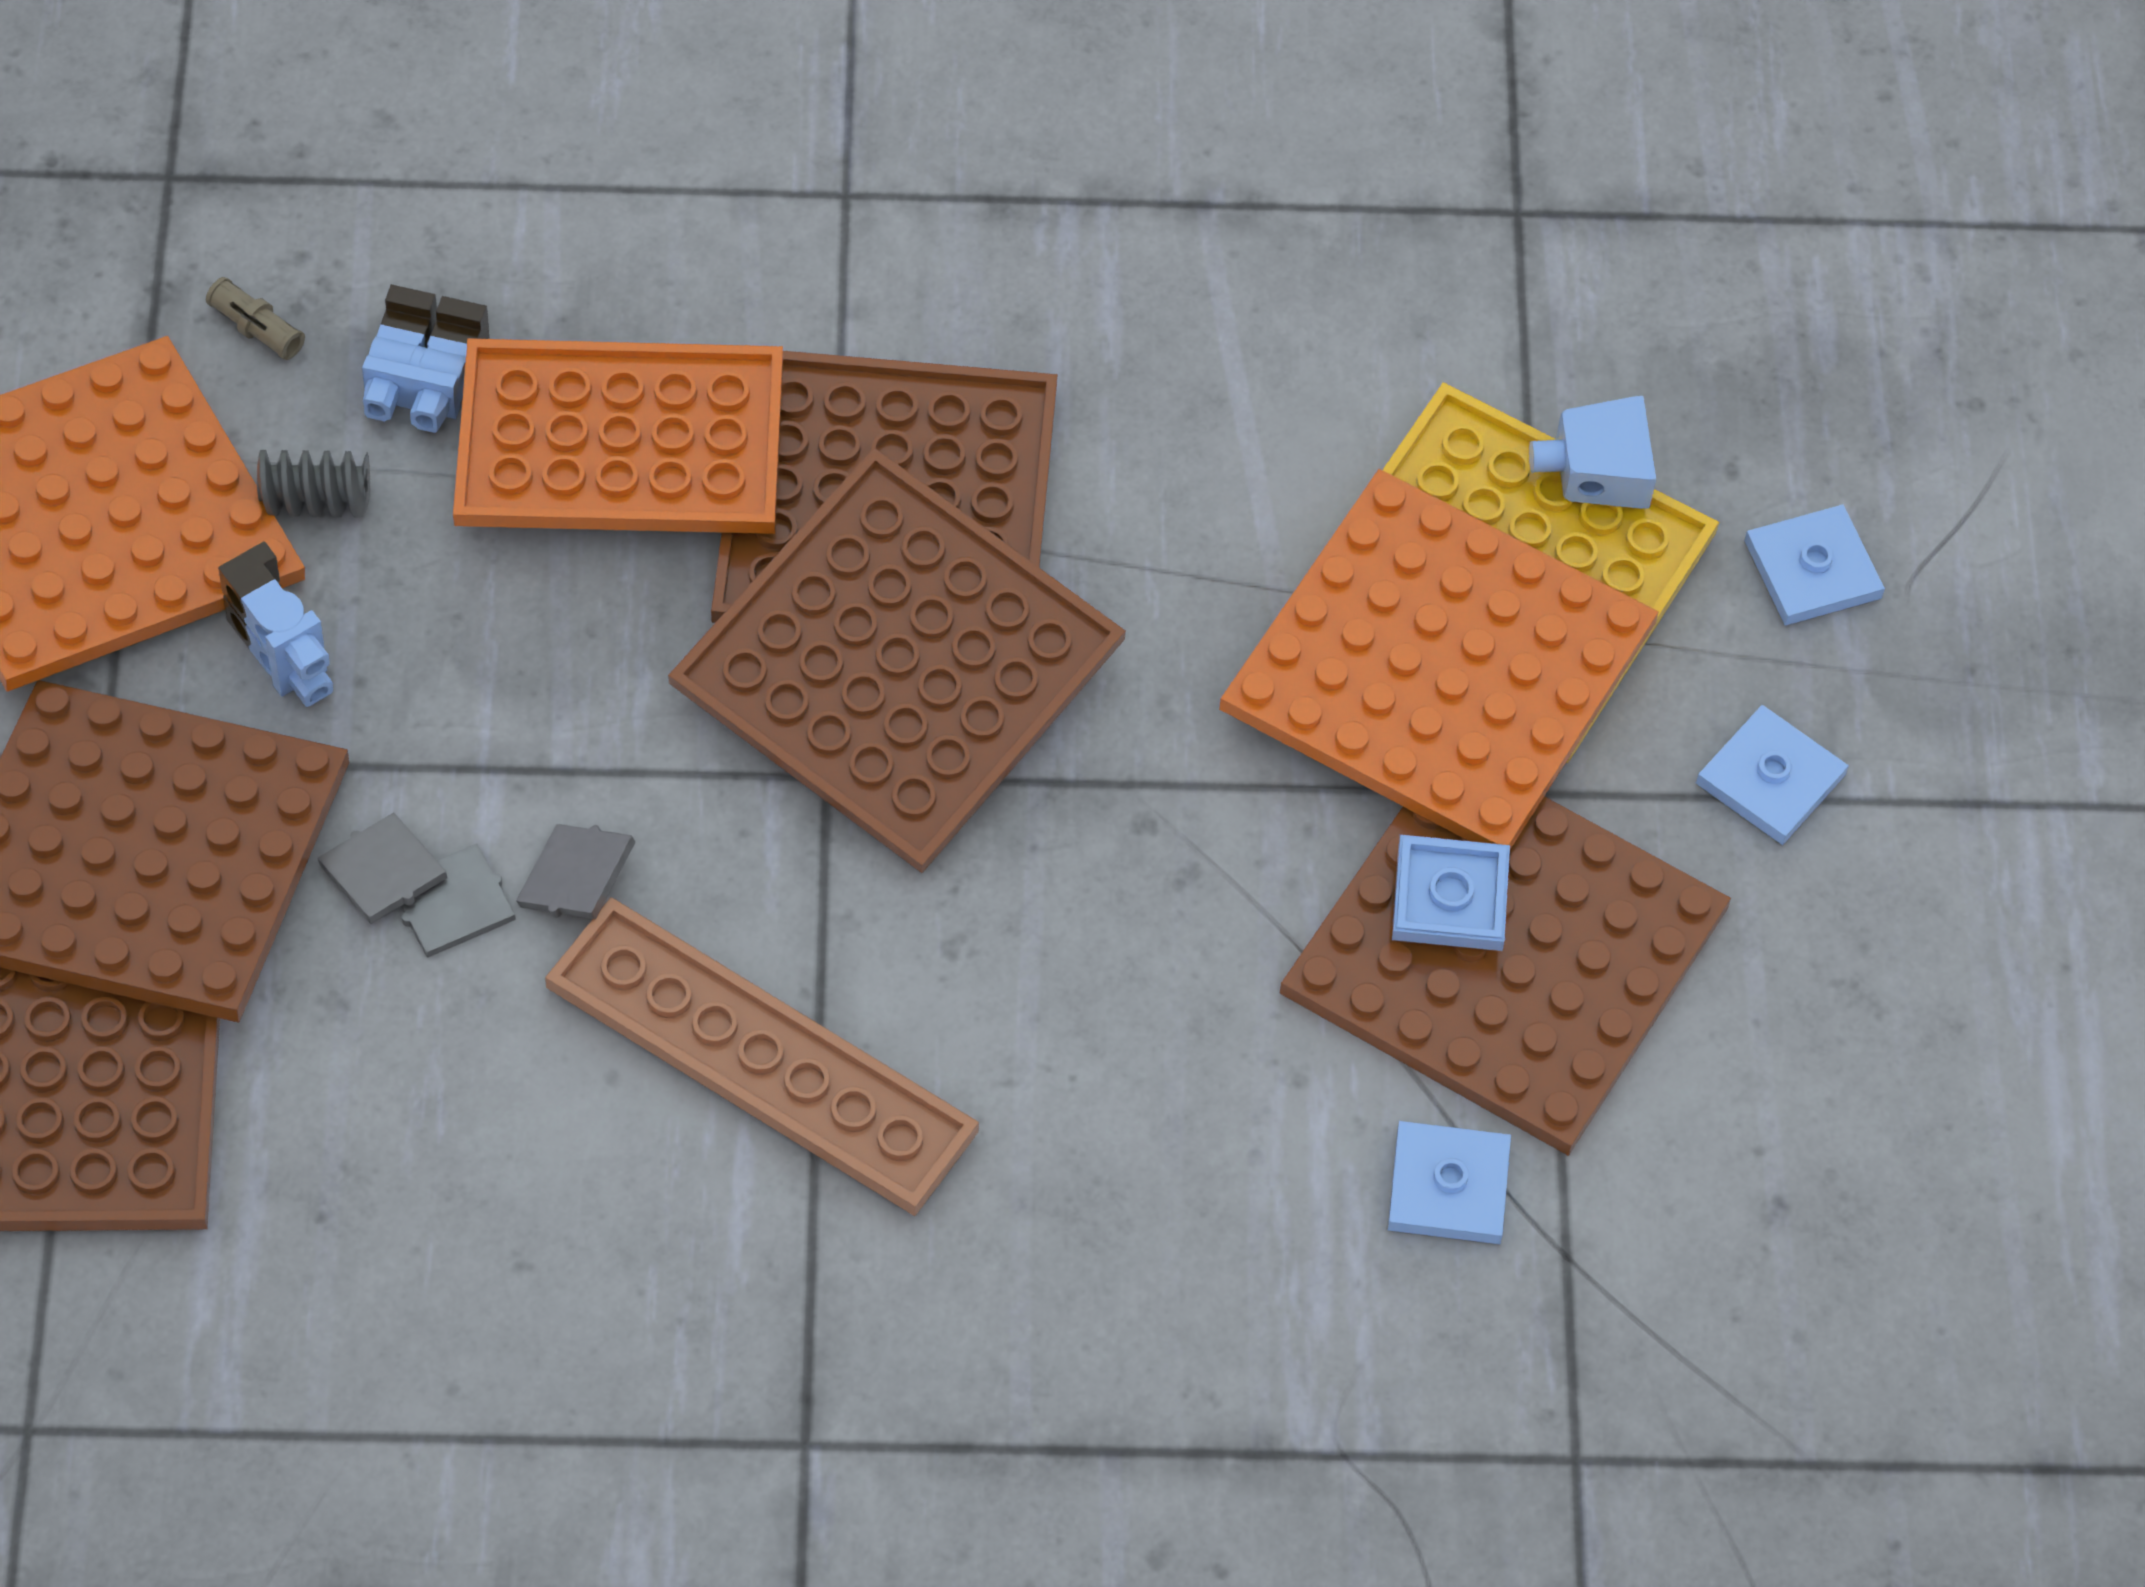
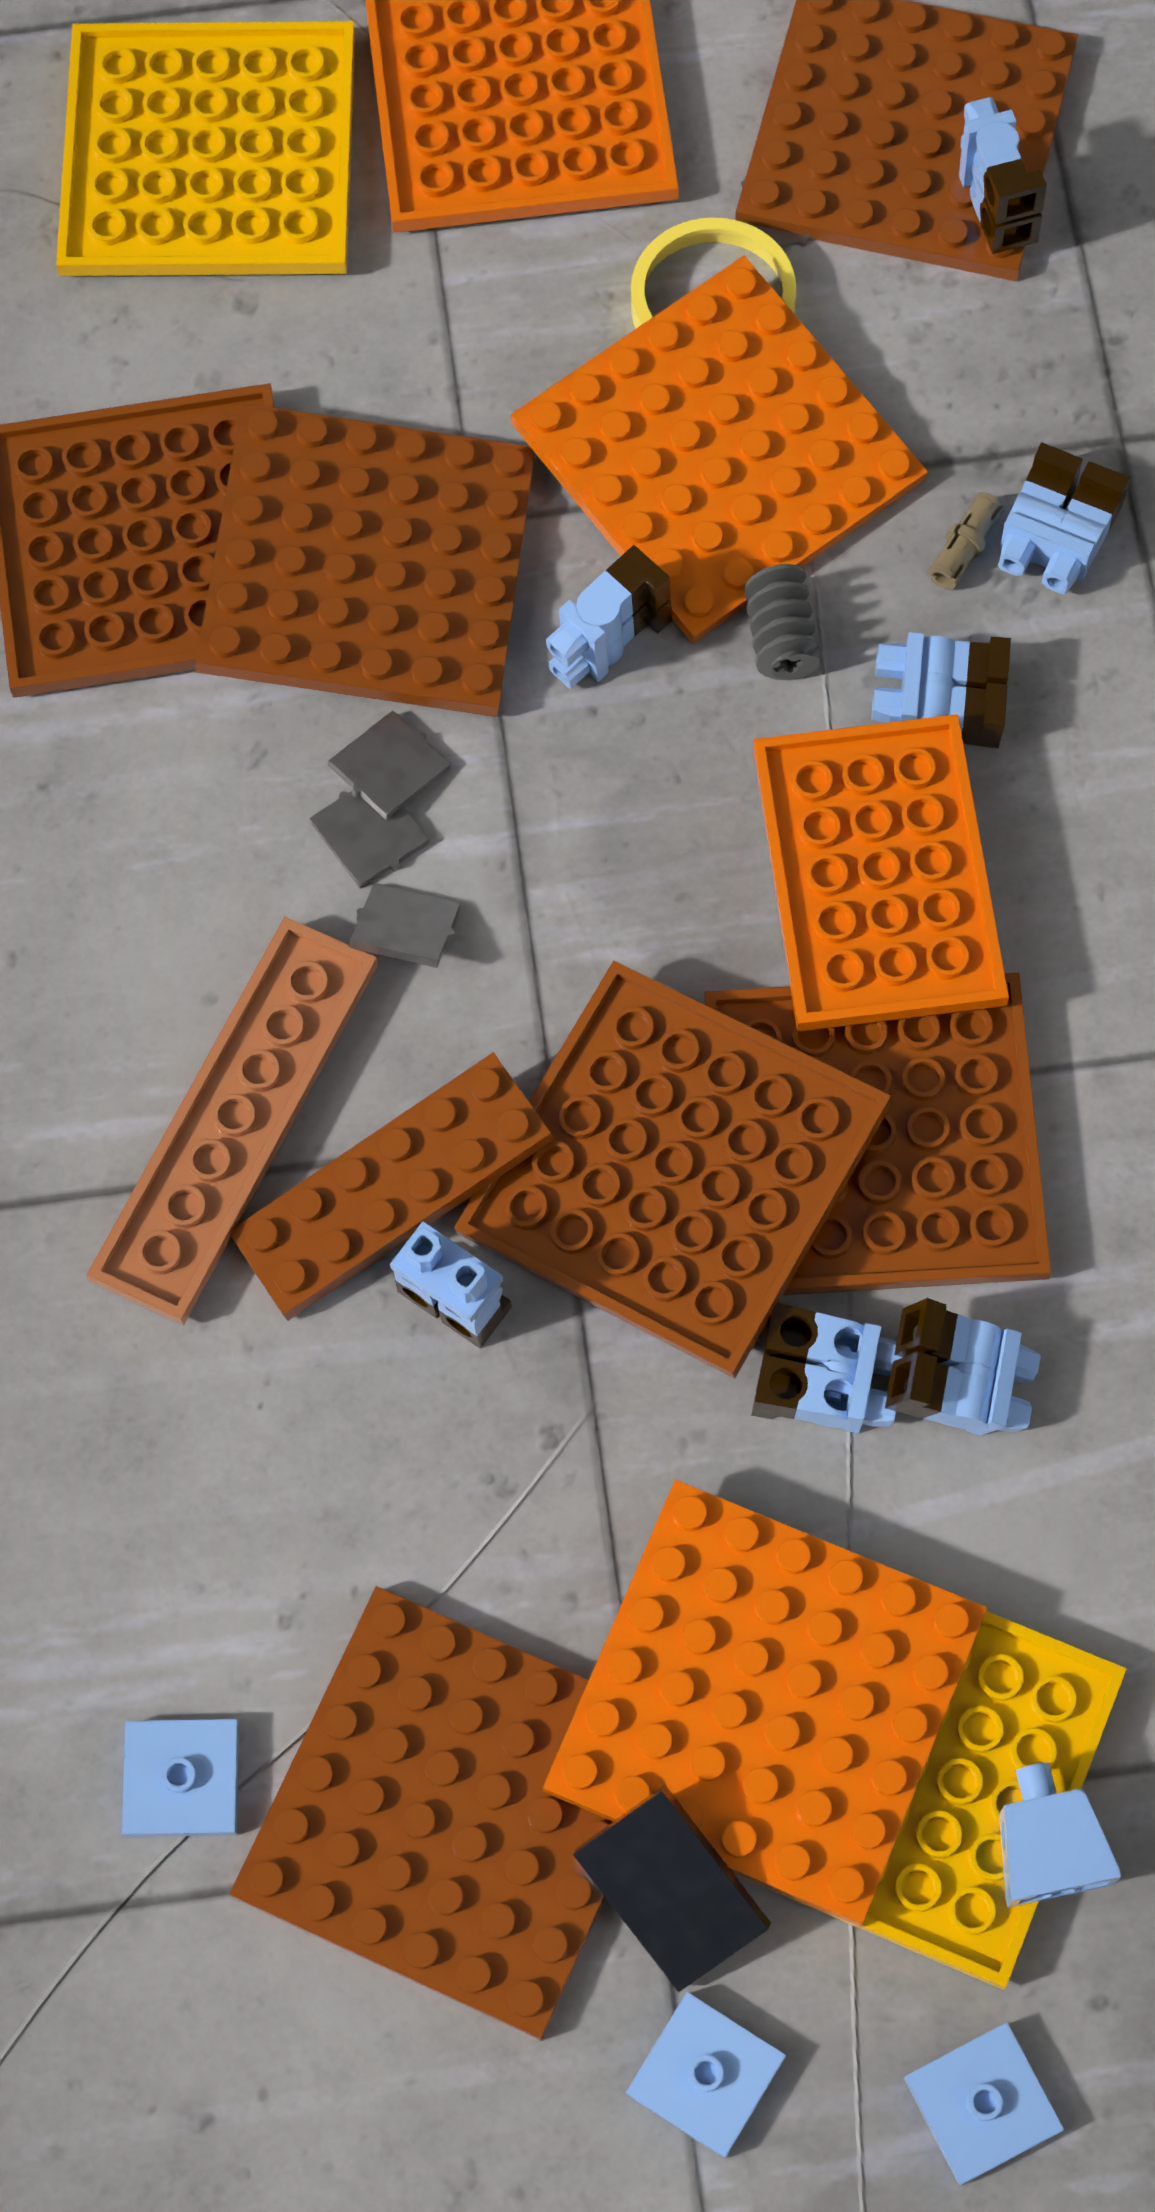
camera: 90 degrees right, 10 degrees up
(254, 232) = (1049, 534): none -> light blue hips
(868, 914) = (389, 1185): none -> dark orange plate
(991, 862) = (450, 1283): none -> light blue hips
(1134, 555) = (823, 1370): none -> light blue hips
(1147, 452) = (960, 1371): none -> hips
(1451, 892) = (483, 1737): light blue plate -> none
(1610, 757) = (672, 1888): none -> black tile

